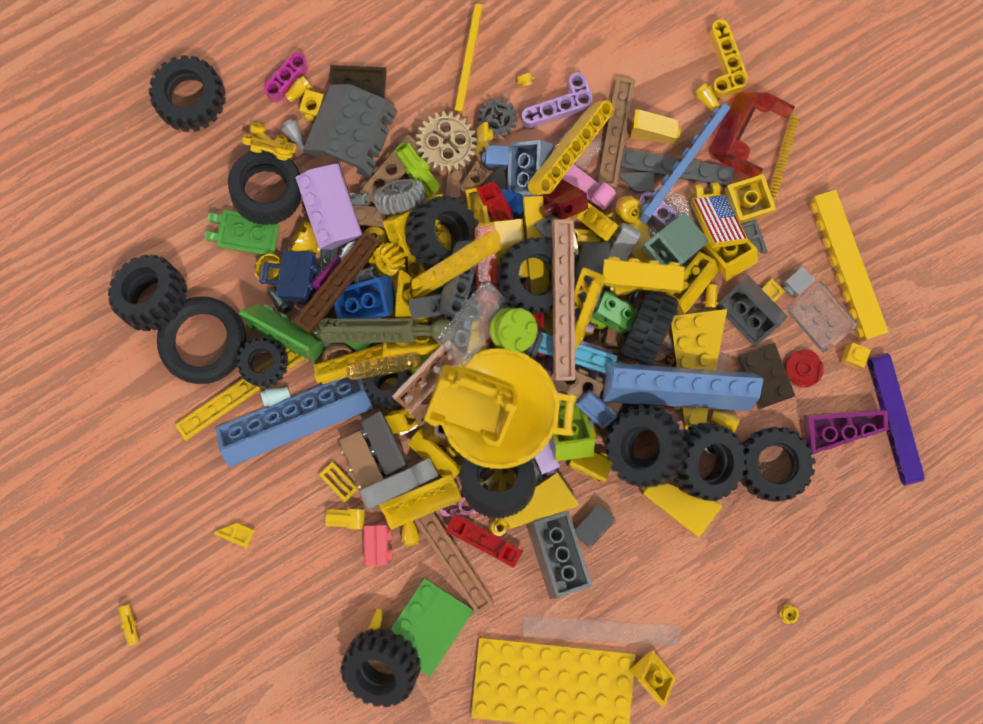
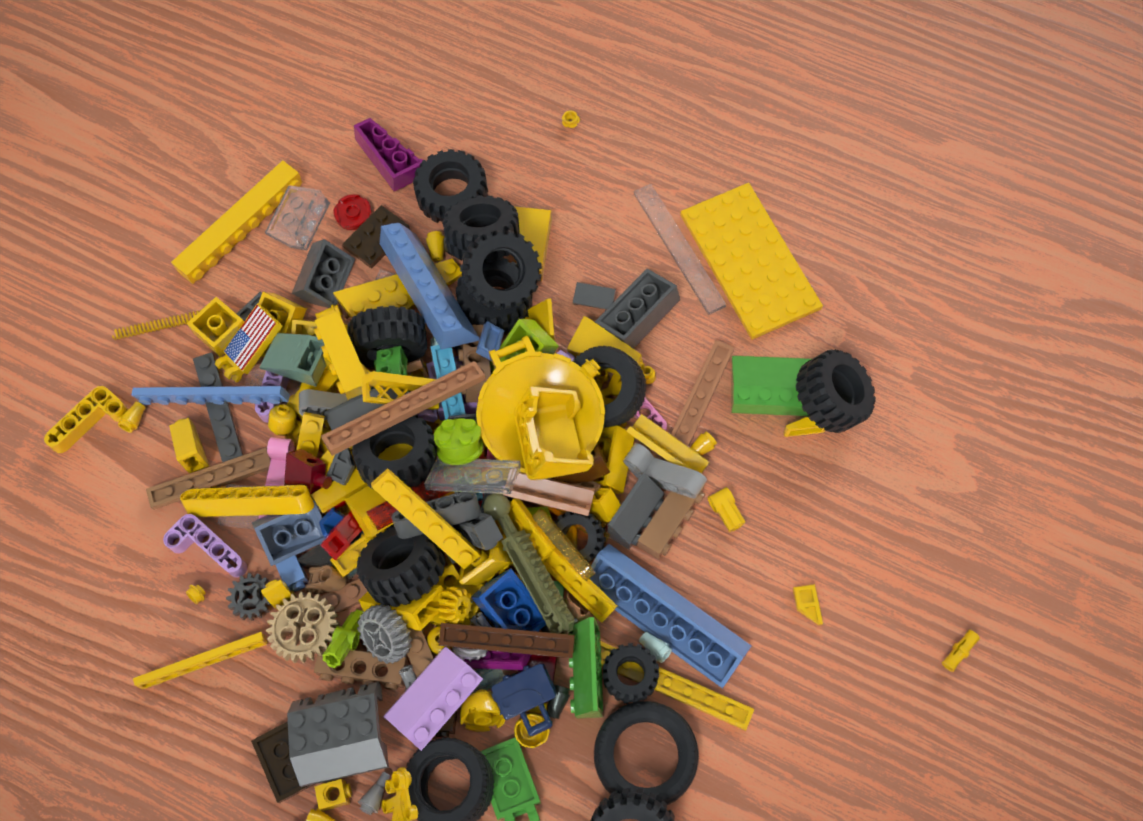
camera: 115 degrees left, 15 degrees down
(333, 487) = (693, 555): yellow tile -> none
(376, 545) = (732, 466): coral brick -> none
(484, 540) = (666, 378): red slope -> none
(512, 471) = (591, 367): none -> yellow plate
(639, 181) = (248, 432): dark grey tile -> none
(654, 677) = (690, 185): yellow slope -> none
(727, 145) = (171, 371): clear red windscreen -> none
(772, 289) = (293, 270): yellow tile -> none
(797, 282) = (276, 252): light grey brick -> none
(855, 356) = (319, 176): yellow brick -> none
(900, 430) = (342, 133): dark purple beam -> none

